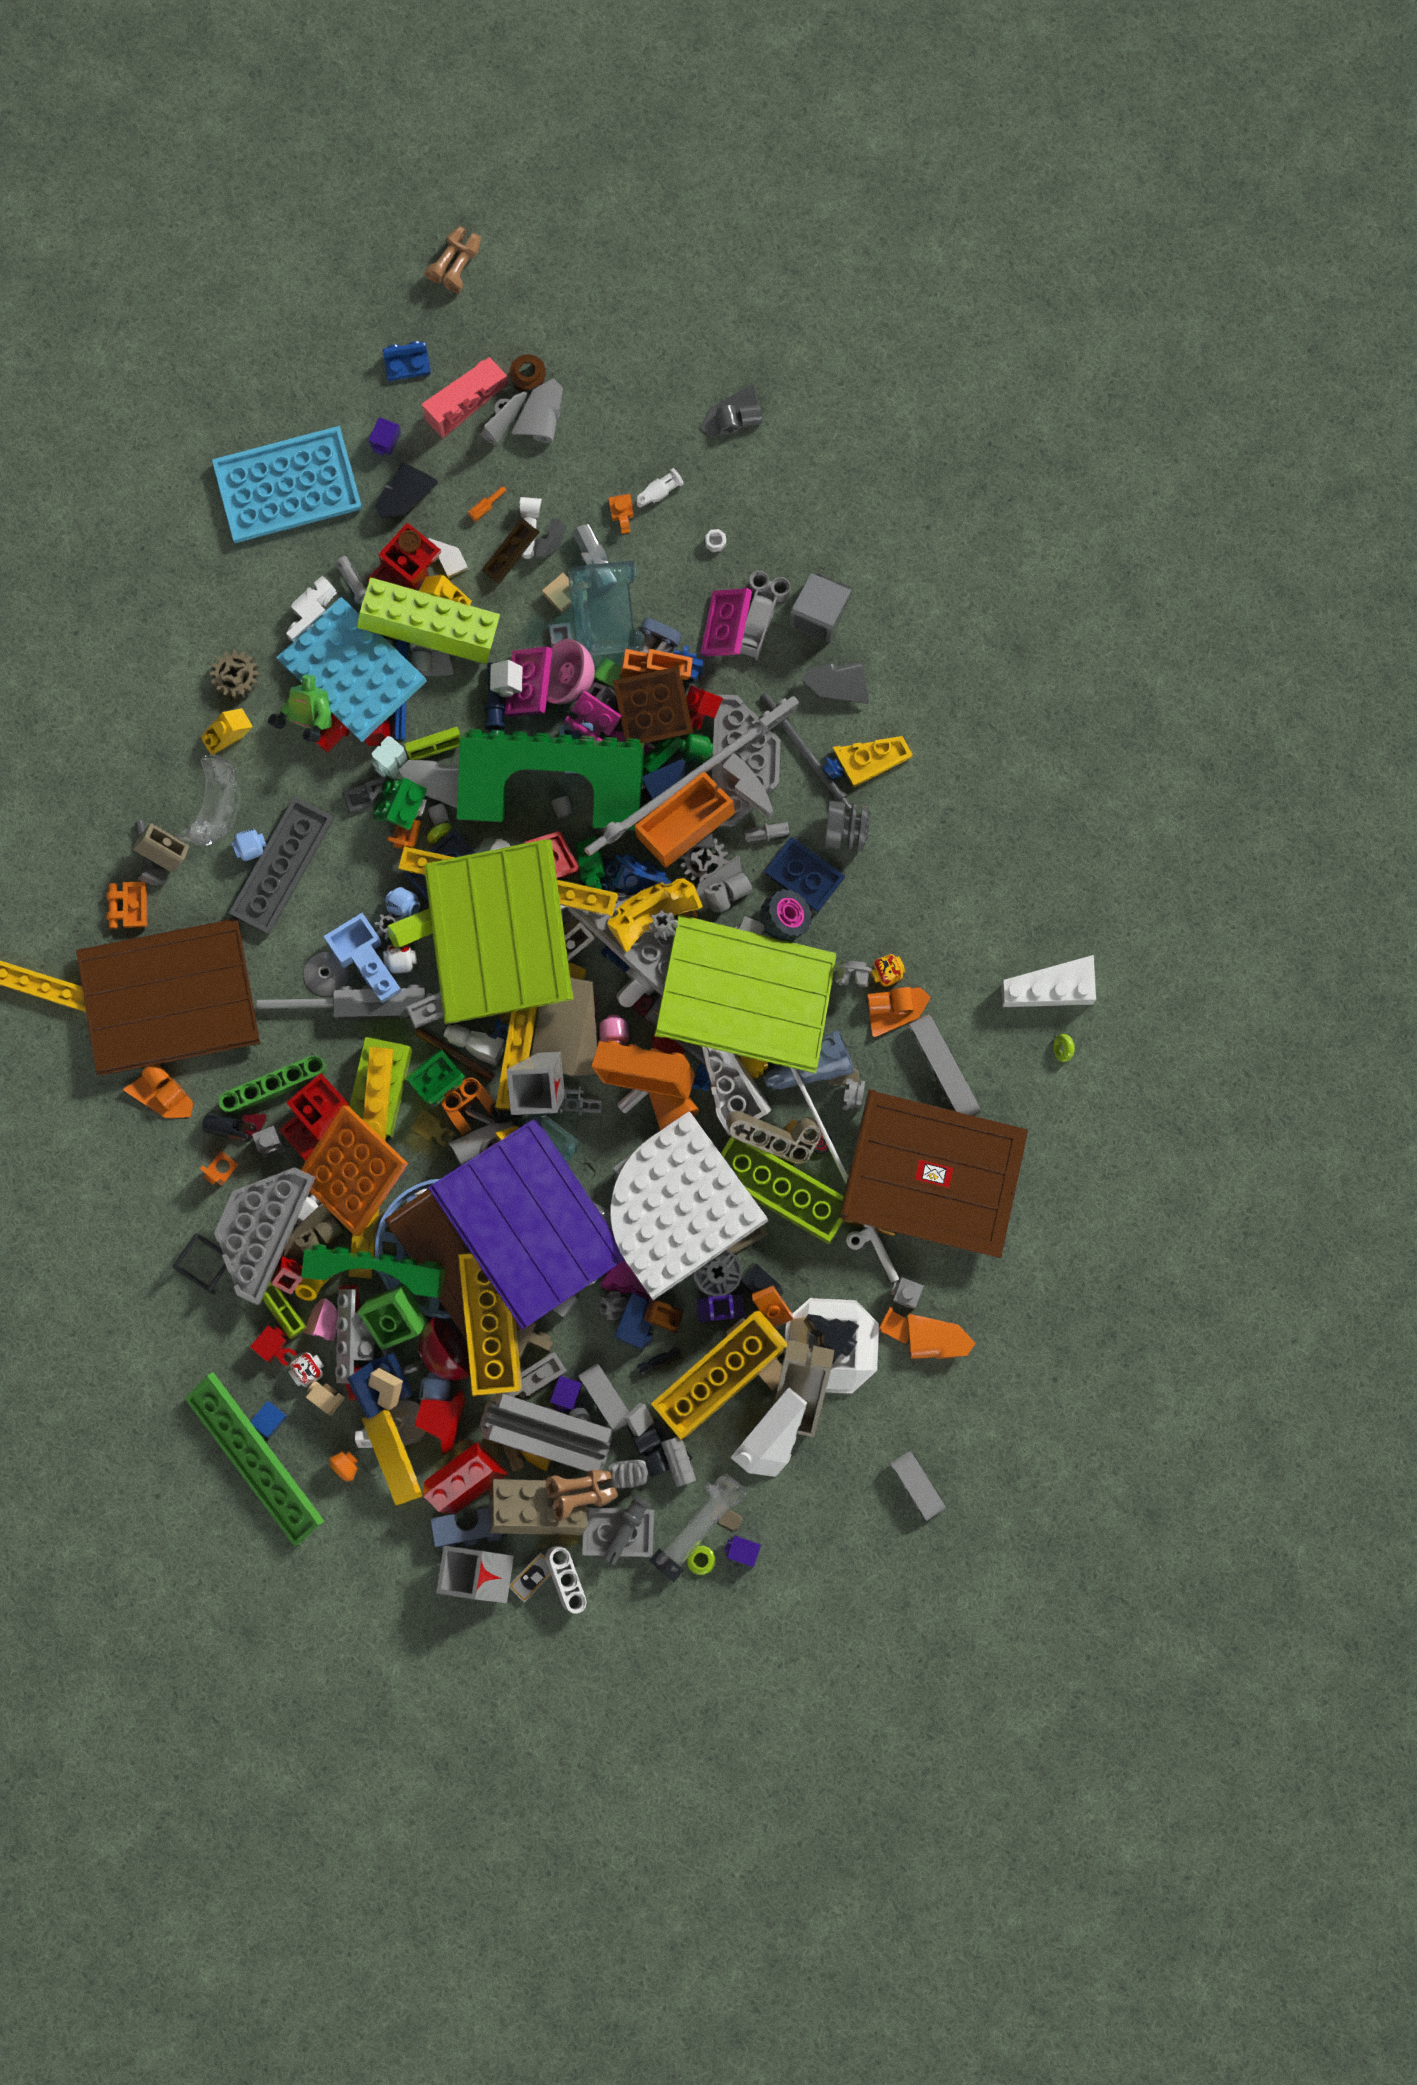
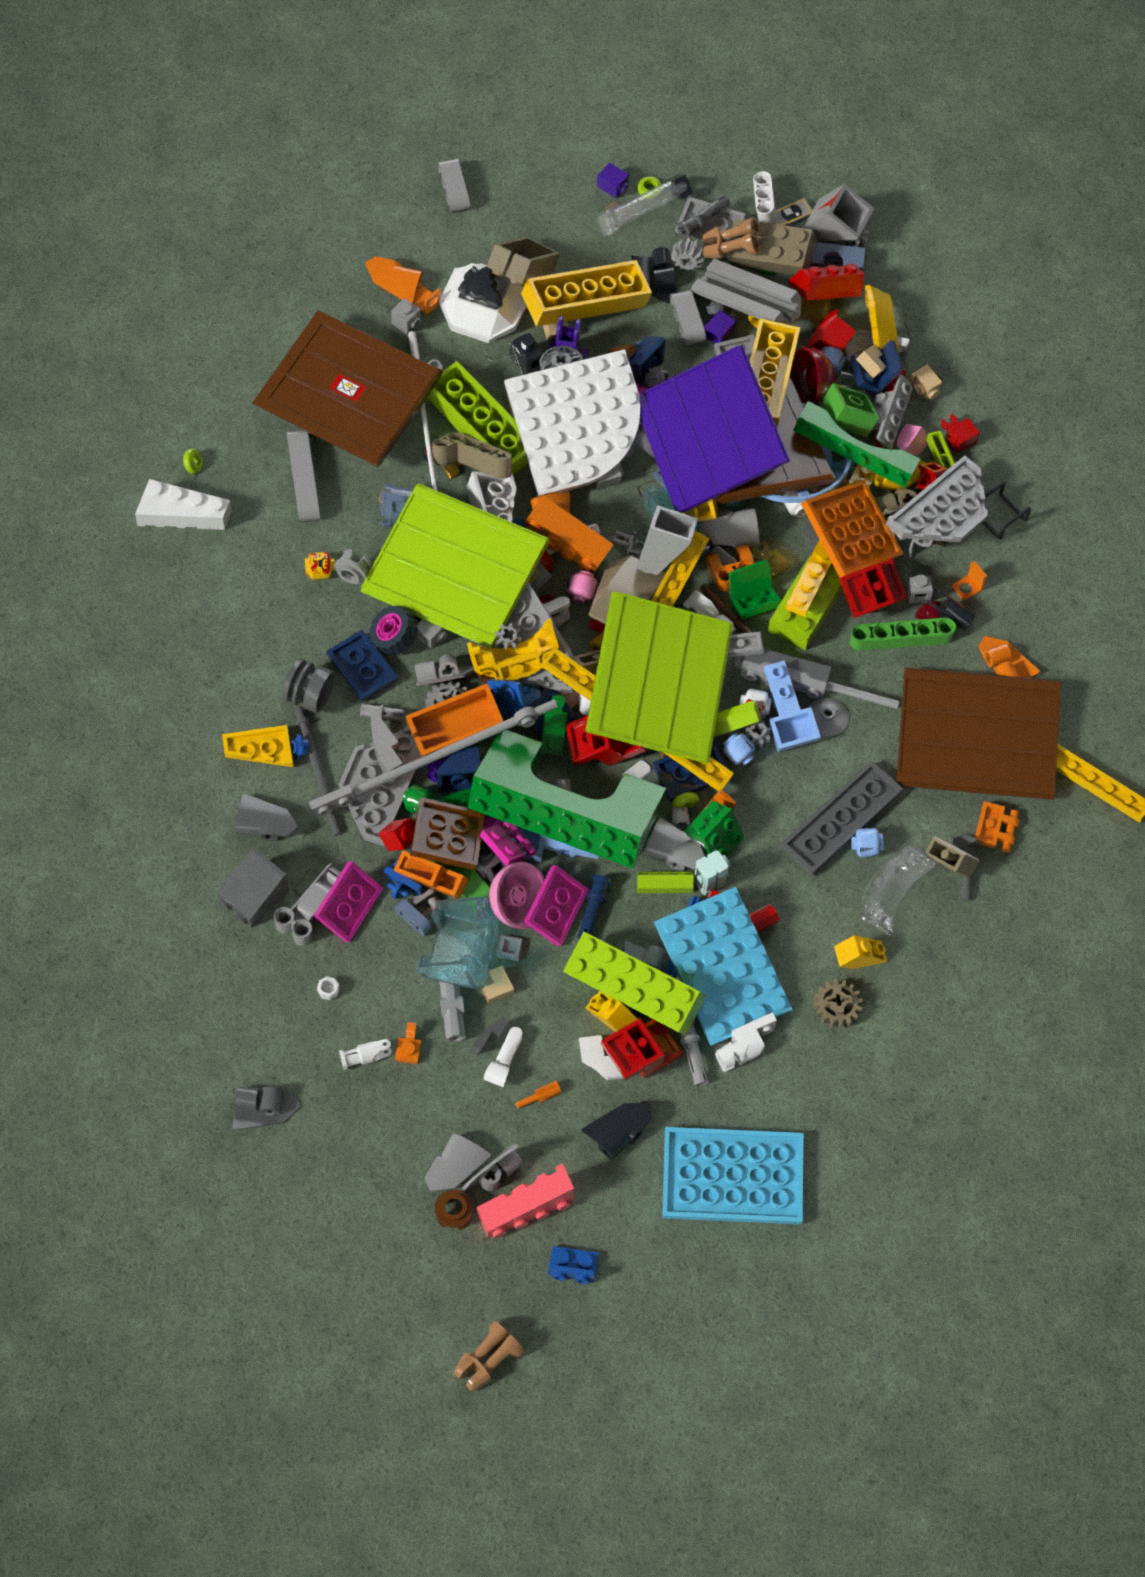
camera: 165 degrees left, 15 degrees down
(254, 1459) = (999, 353): bright green plate -> none
(268, 1420) = (978, 380): blue brick -> none
(306, 707) = (775, 937): bright green torso -> none
(306, 1369) = (935, 409): head -> none
(344, 1465) = (924, 330): orange cone -> none
(363, 796) = (748, 858): dark grey slope -> none
(384, 436) = (620, 1190): dark purple brick -> none
(409, 541) = (629, 1056): reddish brown piece -> none
(506, 678) = (576, 912): white brick -> none
(510, 551) = (531, 1035): dark brown tile -> none
(639, 1419) = (665, 290): light grey tile -> none
(659, 1361) = (632, 332): black axle -> none
(678, 1461) = (643, 251): light grey axle -> none
(771, 1441) = (563, 241): white wedge -> none
(772, 1306) = (524, 326): orange plate -> none
(853, 1095) = (390, 473): light grey wheel -> none
(895, 1008) = (326, 535): orange panel -> none

